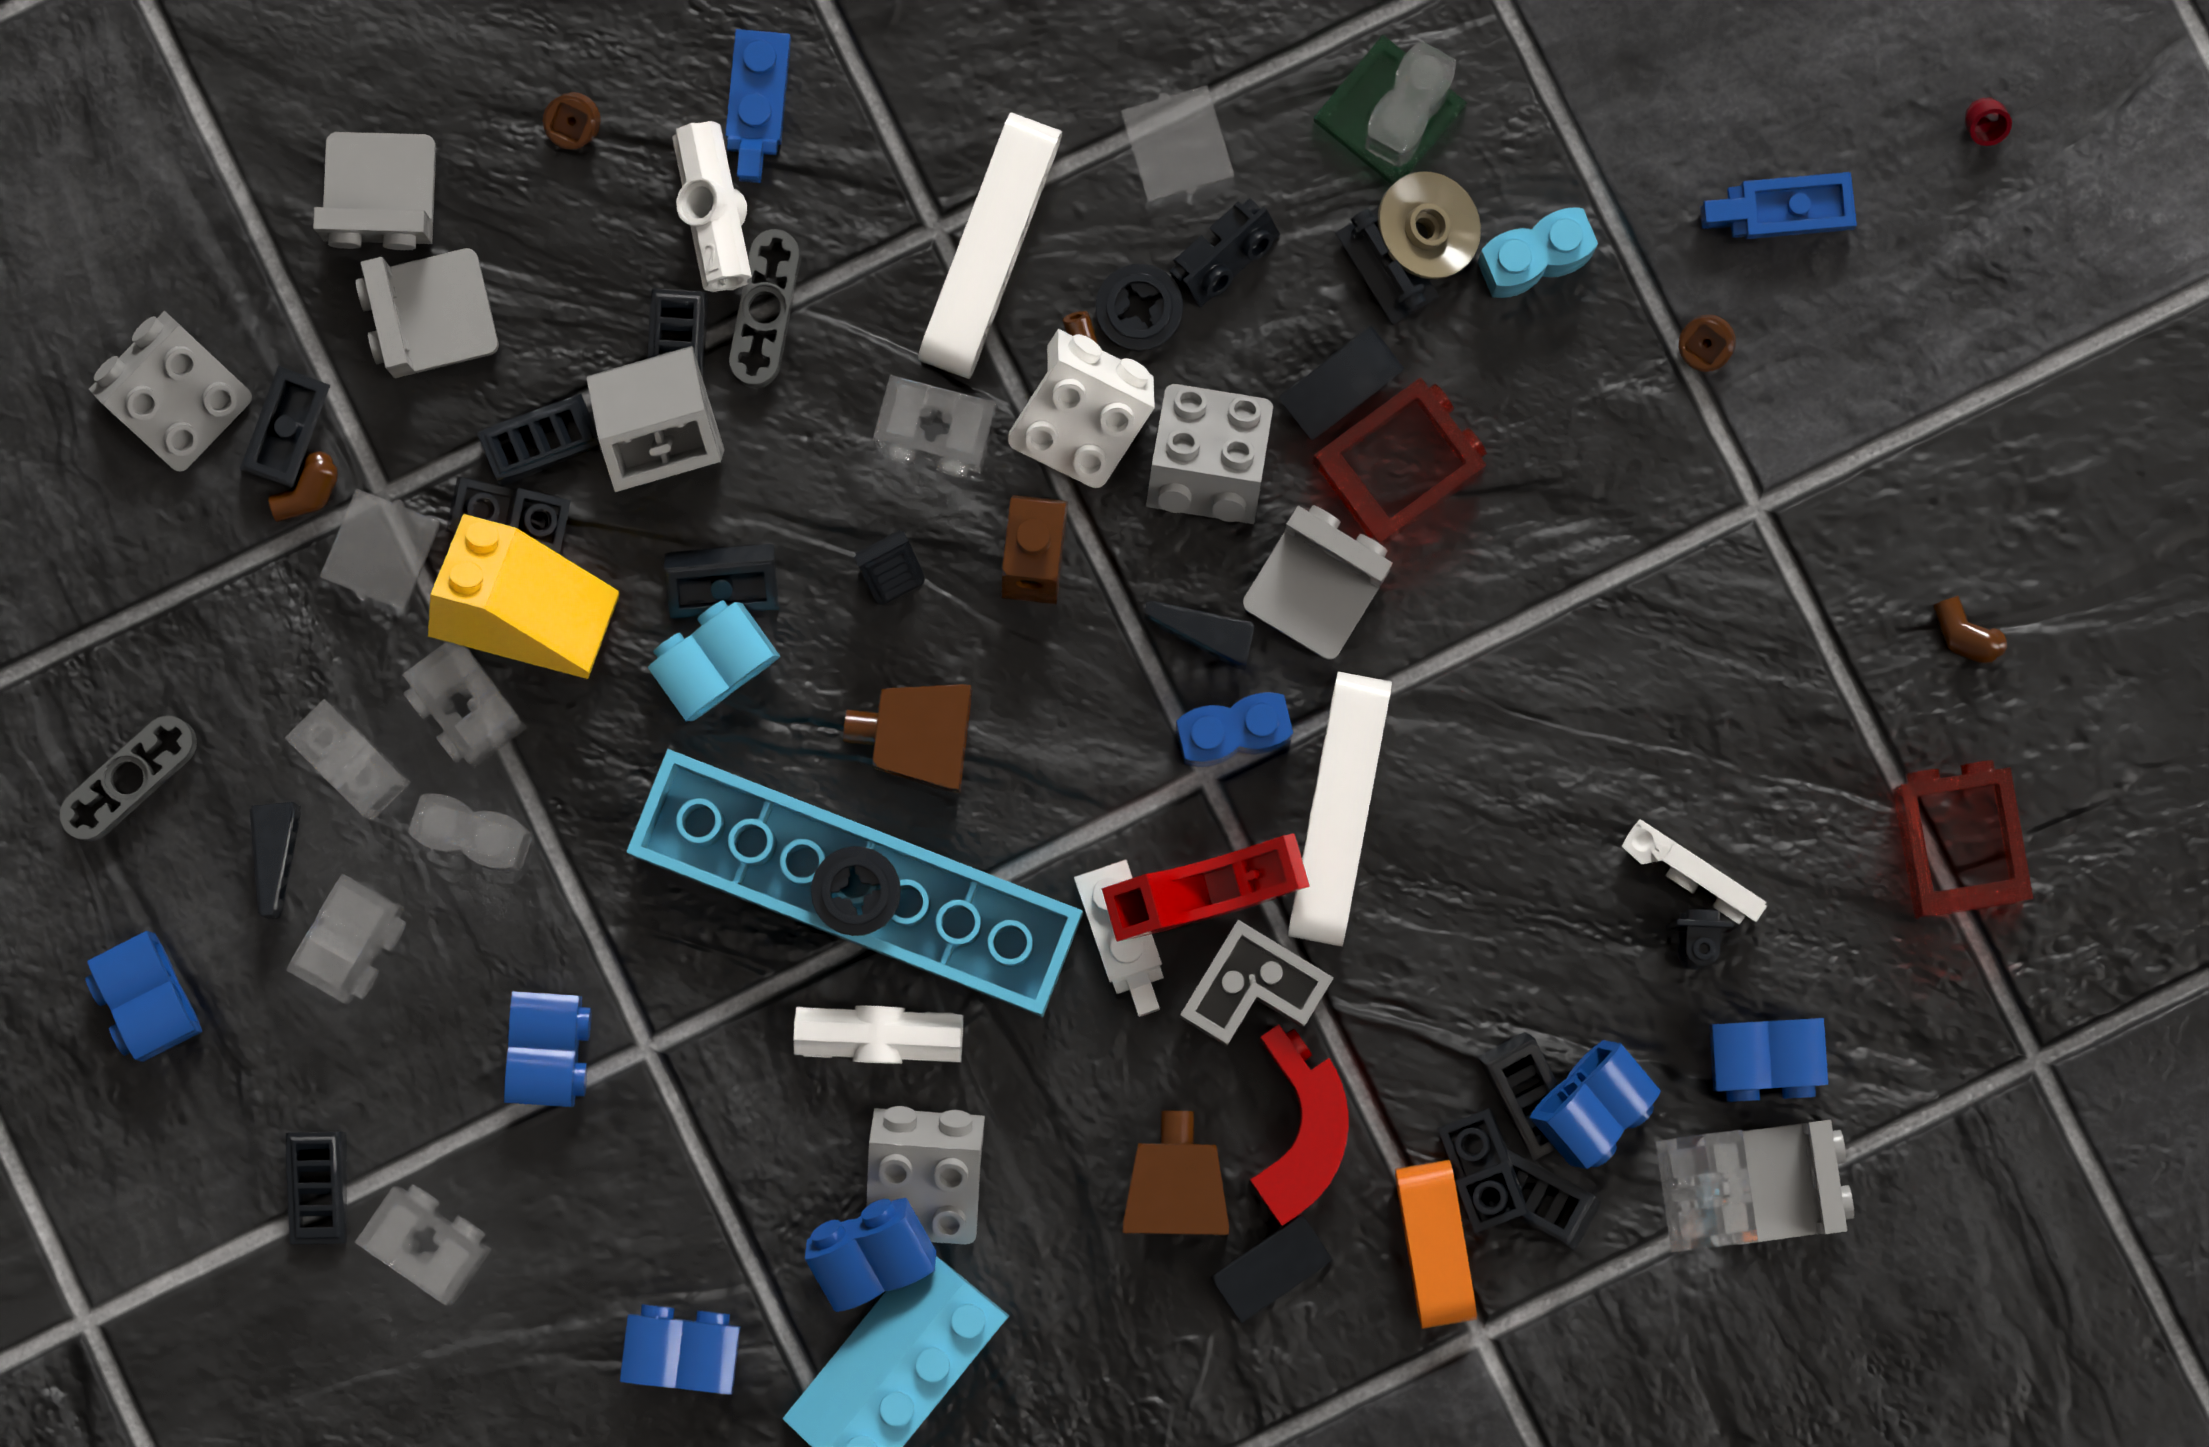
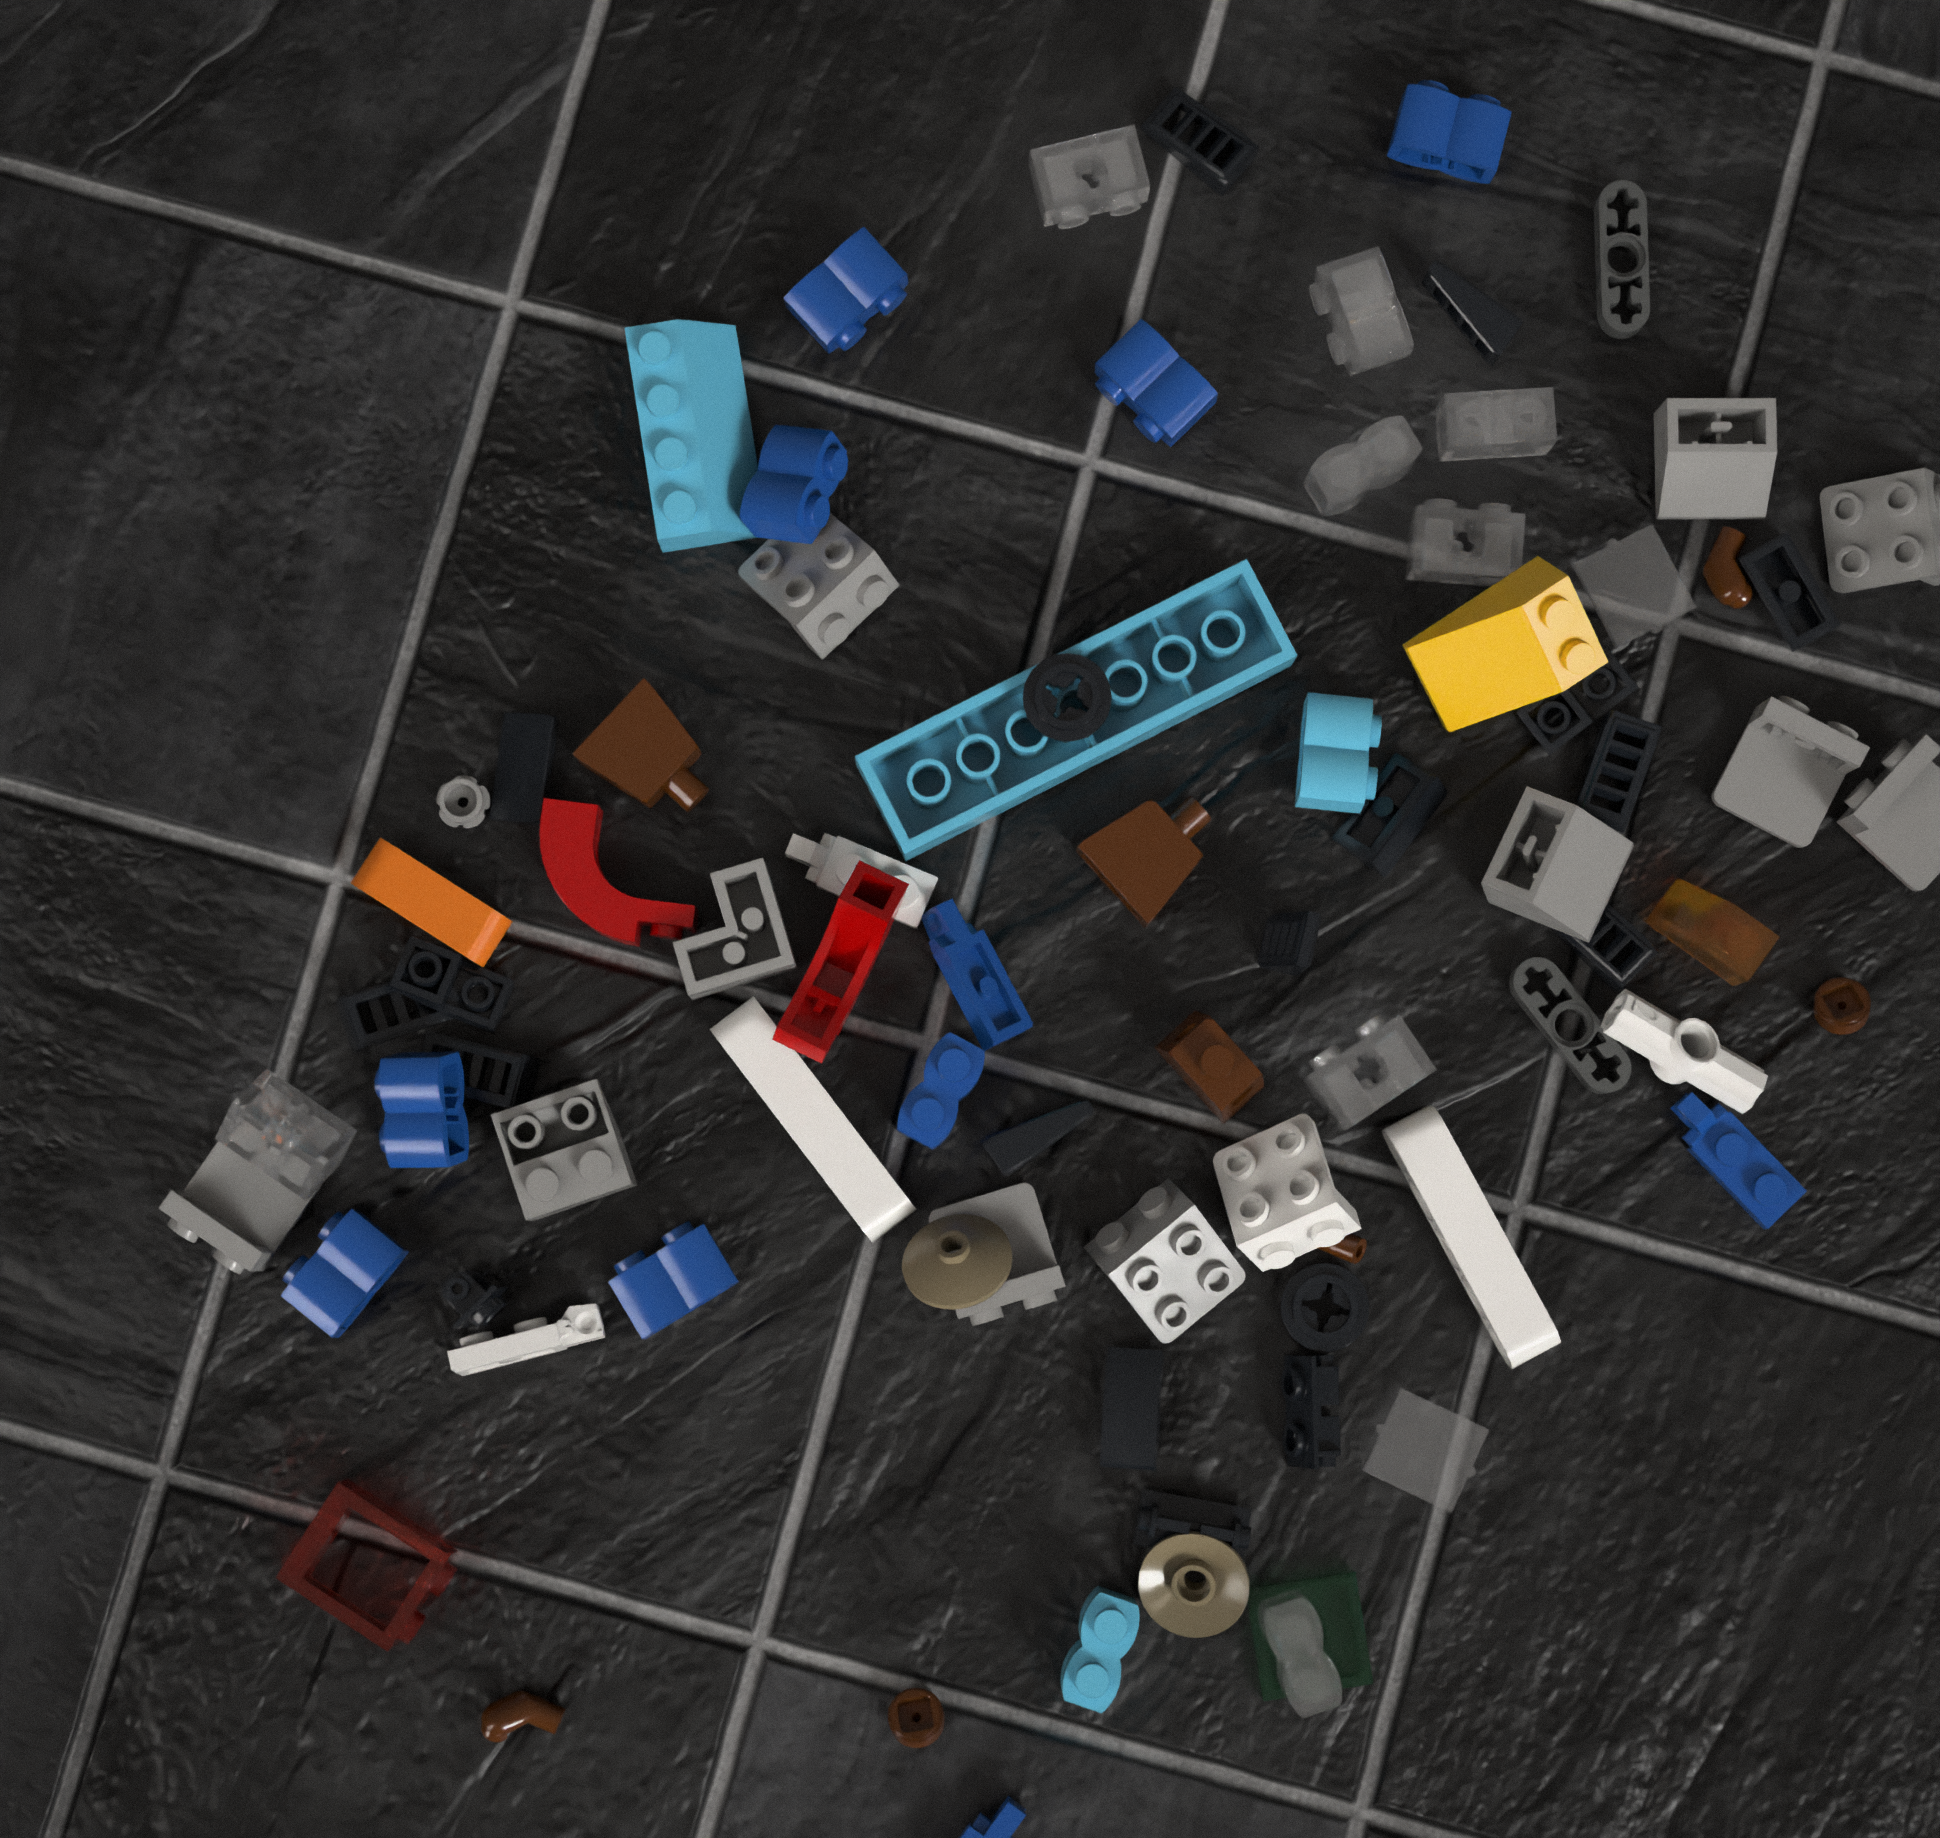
camera: 125 degrees right, 0 degrees up
(230, 570) = (1714, 457): none -> light grey slope
(600, 263) = (1712, 931): none -> clear orange slope
(878, 1034) = (949, 632): white piece -> none
(1124, 782) = (975, 976): none -> blue hinge
(1327, 1280) = (452, 792): none -> light grey plate
(1356, 495) = (1048, 1463): clear red window -> none
(1360, 586) = (959, 1277): none -> dark tan dish
(1531, 970) = (563, 1150): none -> light grey slope
(1552, 805) = (673, 1280): none -> blue brick

